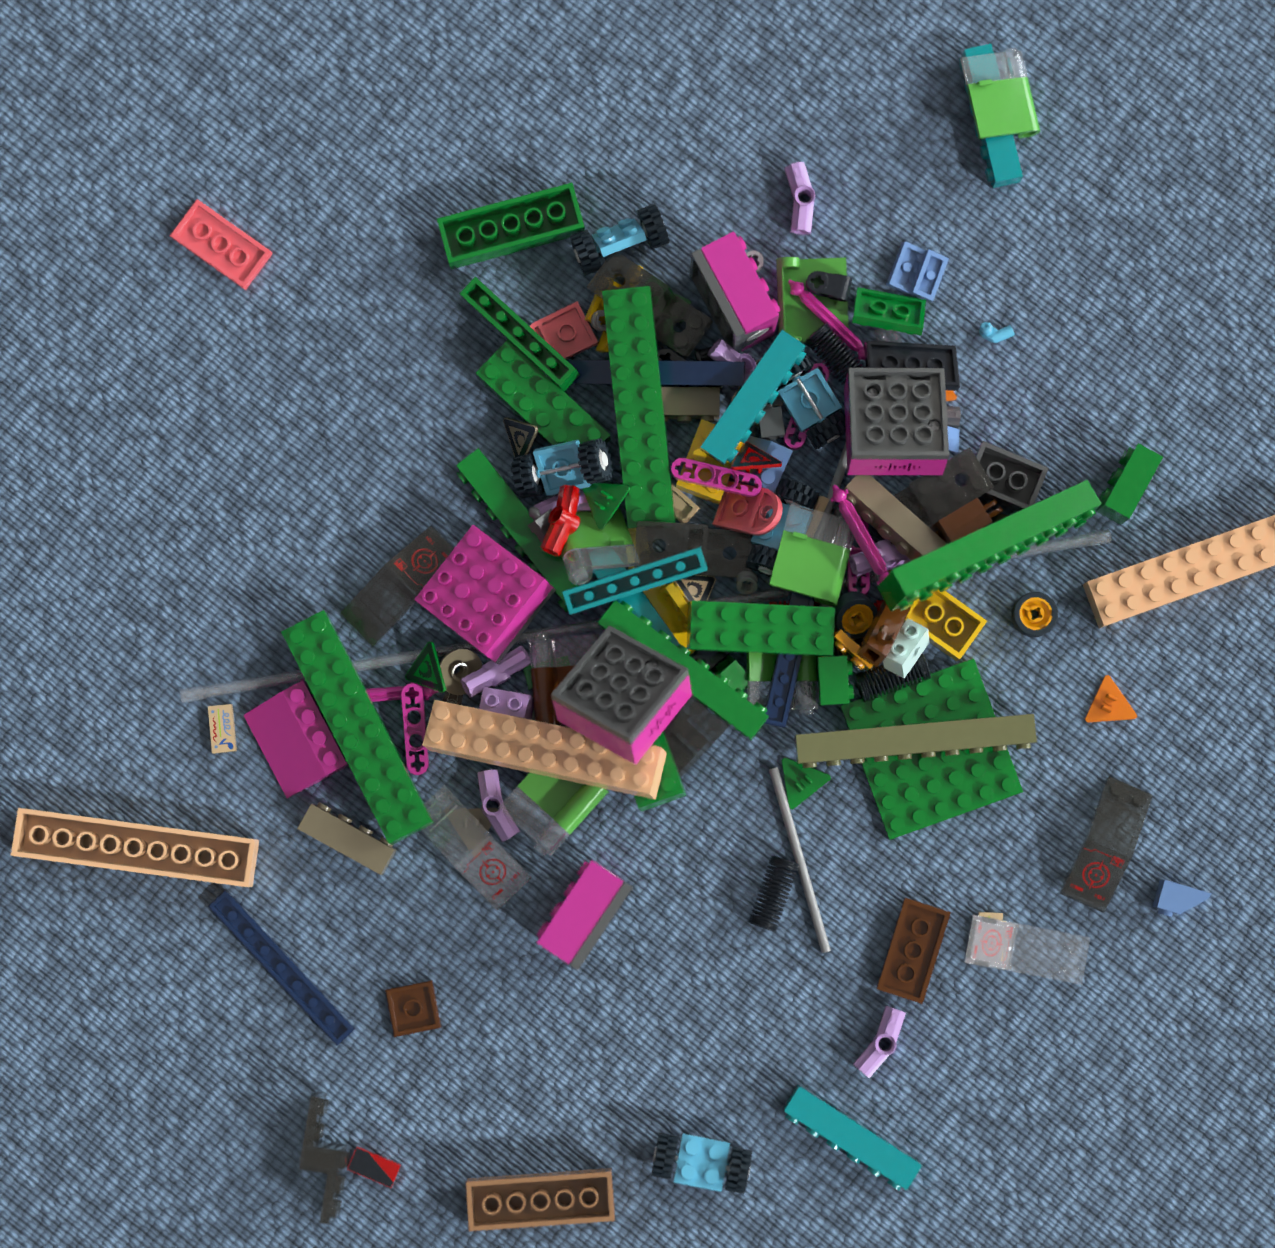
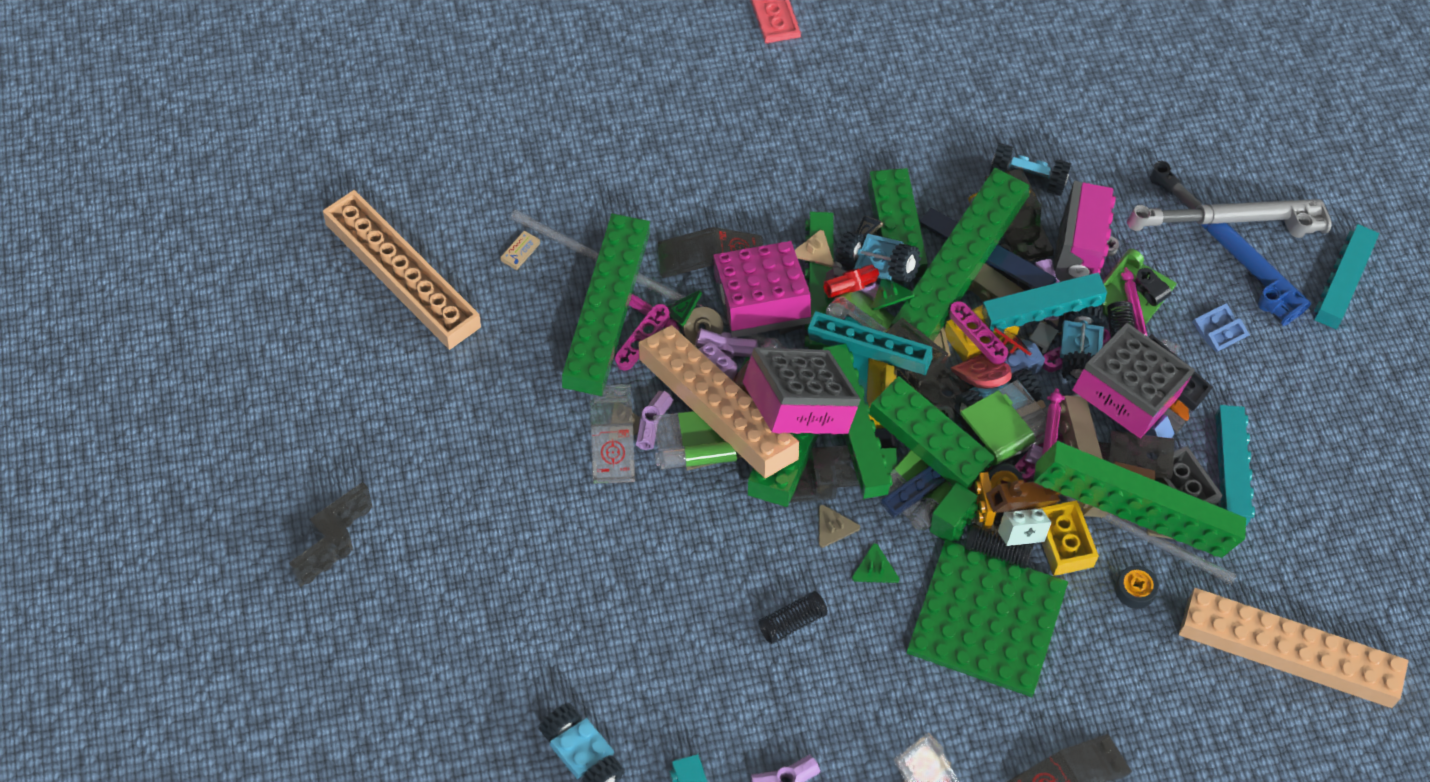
camera: 35 degrees right, 25 degrees down
(281, 967) = (420, 411): dark blue tile -> none
(296, 739) = (560, 288): dark pink slope -> none
(346, 838) = (537, 367): dark tan brick -> none
(374, 1167) = (357, 575): black tile -> none
(413, 1008) = (479, 500): reddish brown tile -> none
(496, 505) = (815, 250): none -> tan piece
(511, 226) = (963, 115): green brick -> none
(519, 333) = (919, 173): green brick -> none
(540, 1199) = (448, 682): medium nougat brick -> none
(566, 331) = (942, 196): coral tile -> none
(583, 914) = (652, 514): dark pink piece -> none
(734, 771) = (834, 526): none -> dark tan piece
(799, 859) = (830, 616): light grey piece -> none
(800, 184) = (1171, 237): lavender piece -> none
(889, 311) = (1181, 331): green plate -> none
(906, 73) = (1299, 215): none -> light grey piece
(913, 950) = (861, 735): reddish brown plate -> none
(915, 739) = (983, 594): olive brick -> none
(954, 188) = (1279, 294): none -> blue piece
(994, 335) = (1246, 401): medium azure arm -> none
(1000, 94) = (1363, 265): bright green door -> none
(1030, 416) = (1234, 461): none -> teal brick
(1109, 704) = (1146, 689): orange piece -> none
(1128, 483) = (1275, 551): green brick -> none

